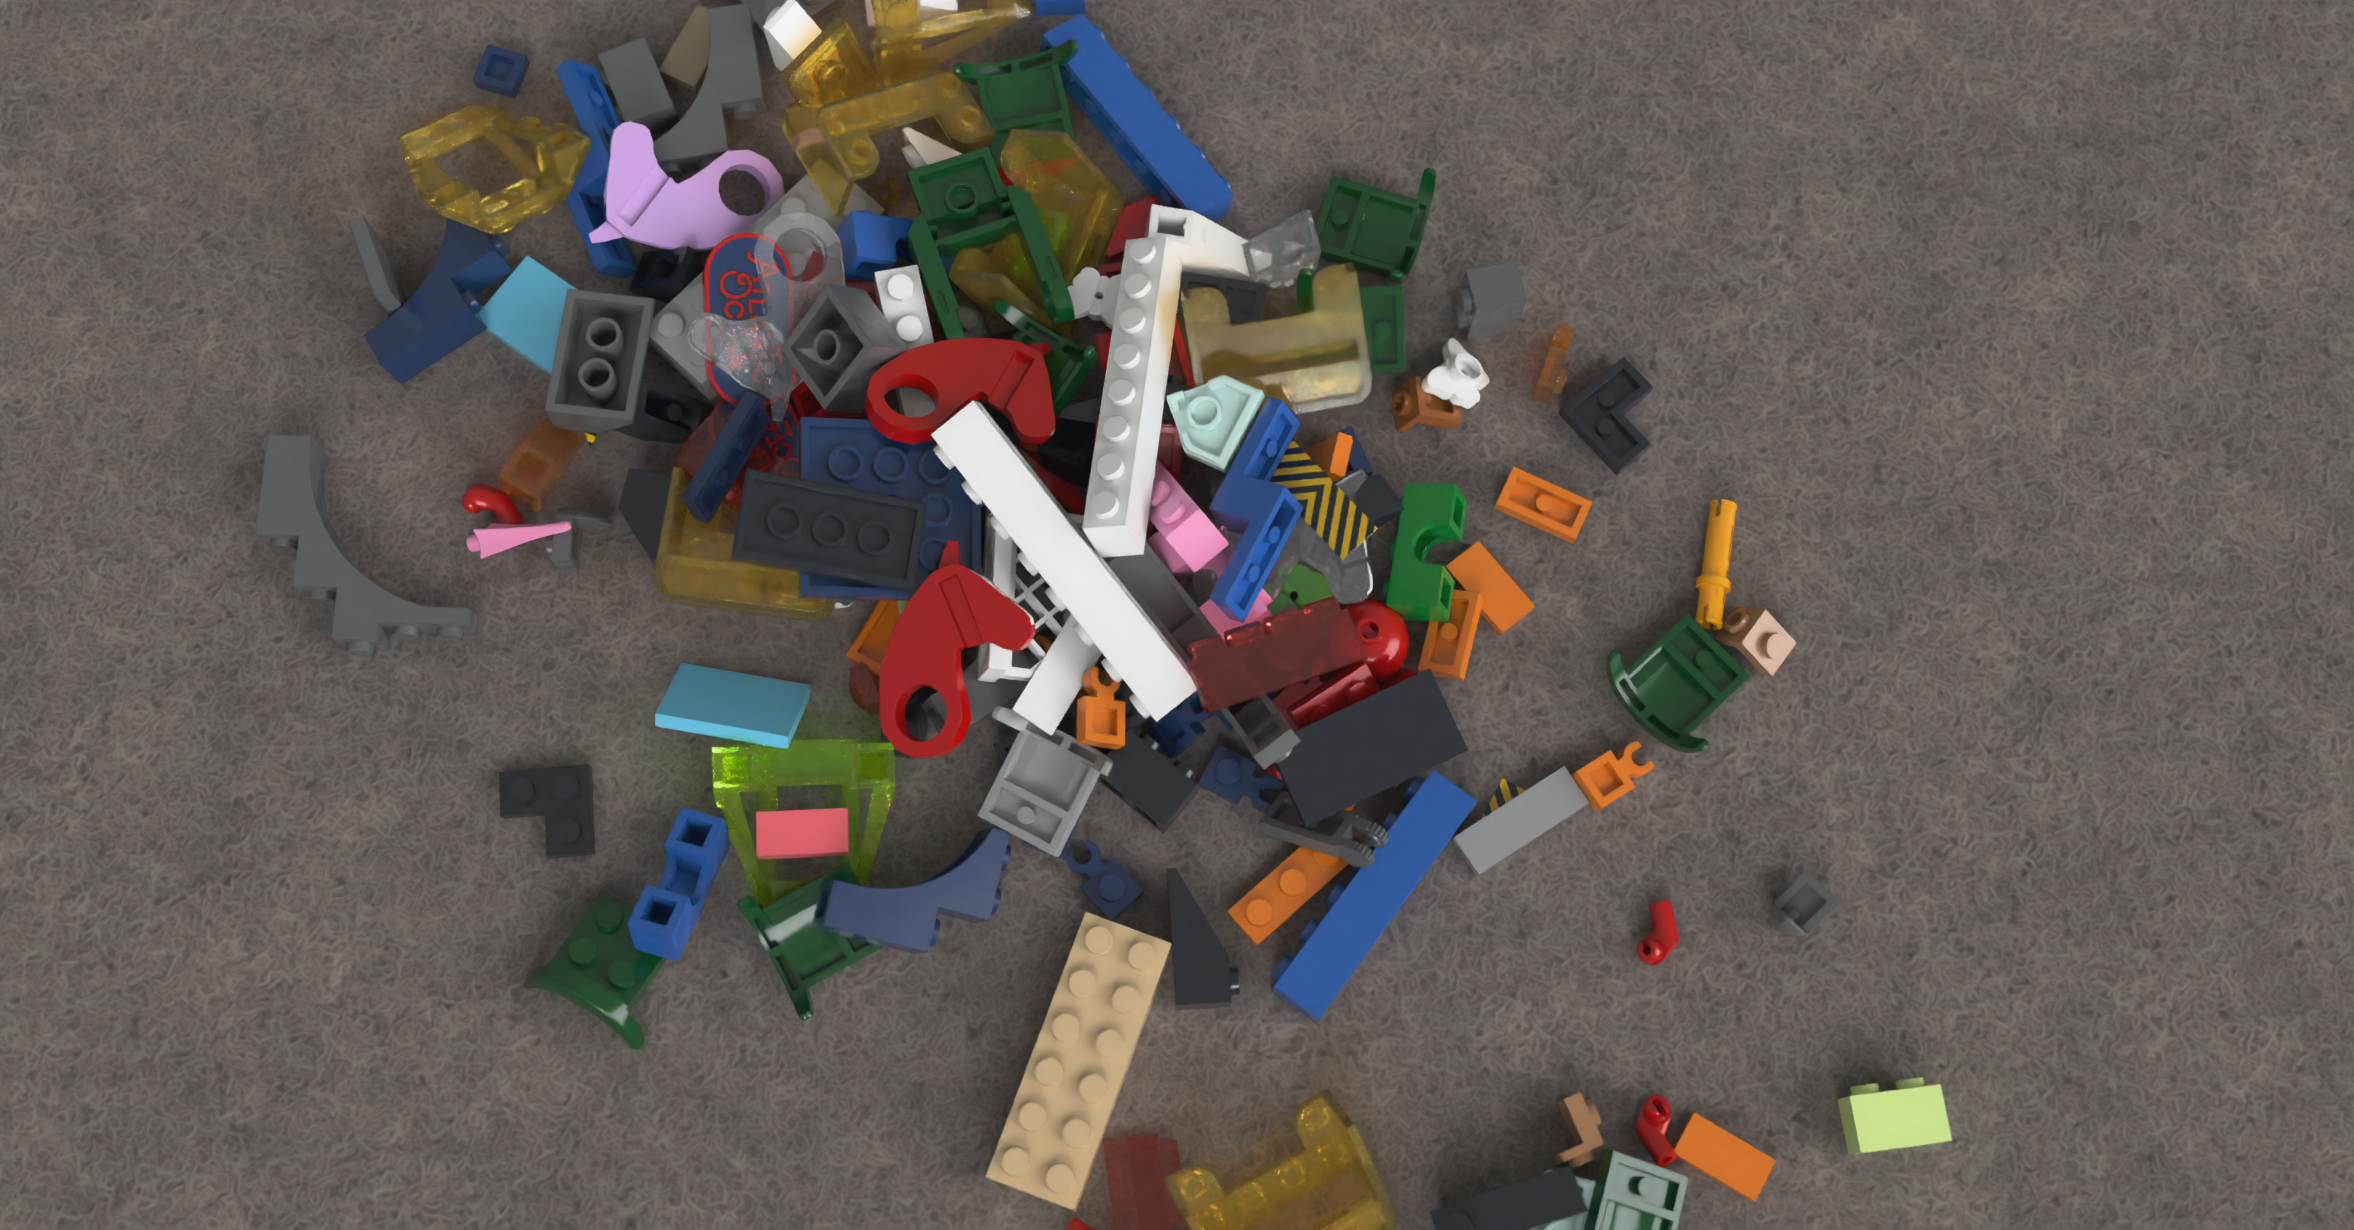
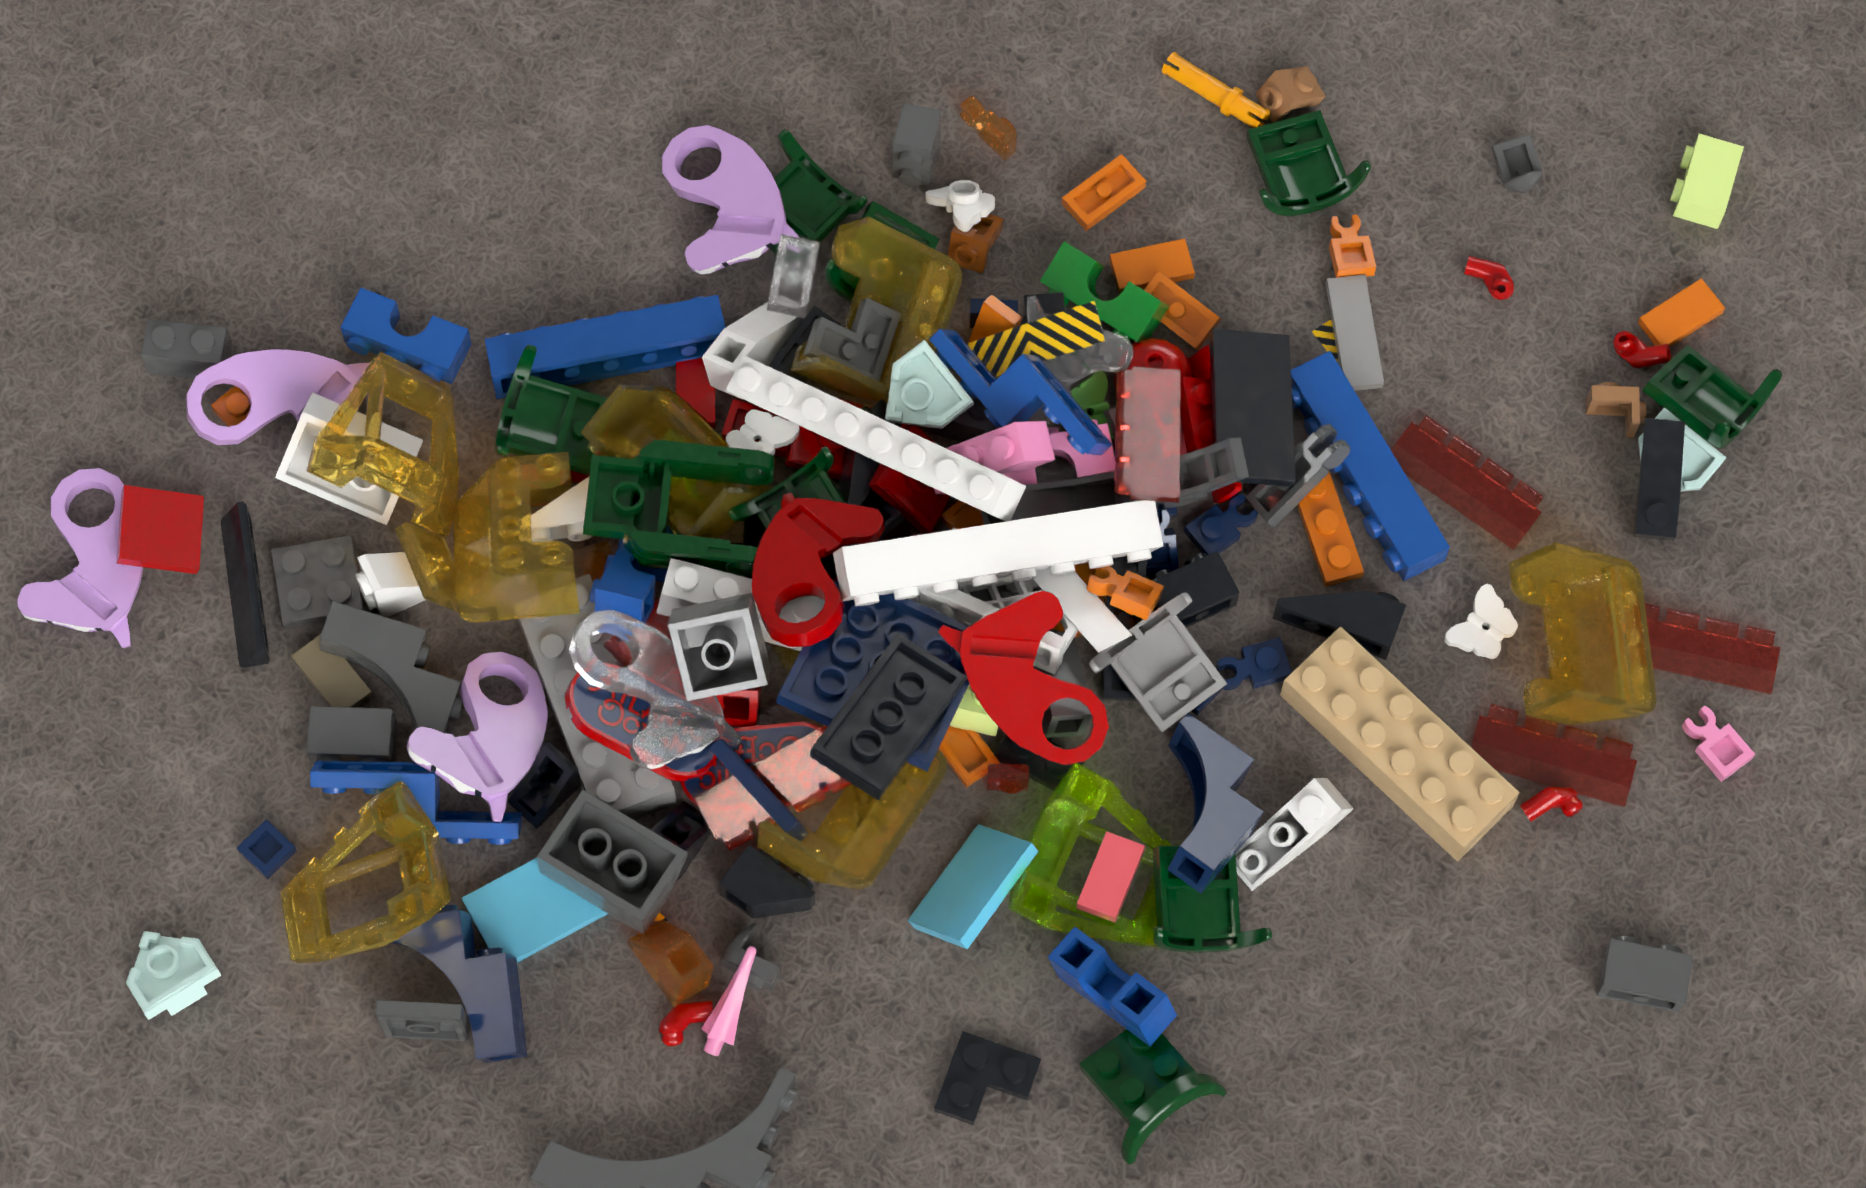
camera: 65 degrees left, 5 degrees down
(347, 48) = (170, 973): none -> light aqua plate
(938, 993) = (1291, 831): none -> white slope
(1232, 346) = (864, 346): none -> dark grey plate
(1274, 1094) = (1488, 612): none -> white animal
(1353, 167) = (743, 191): none -> lavender animal
(1406, 1016) = (1473, 492): none -> clear red windscreen
(1600, 419) = (1049, 115): black plate -> none

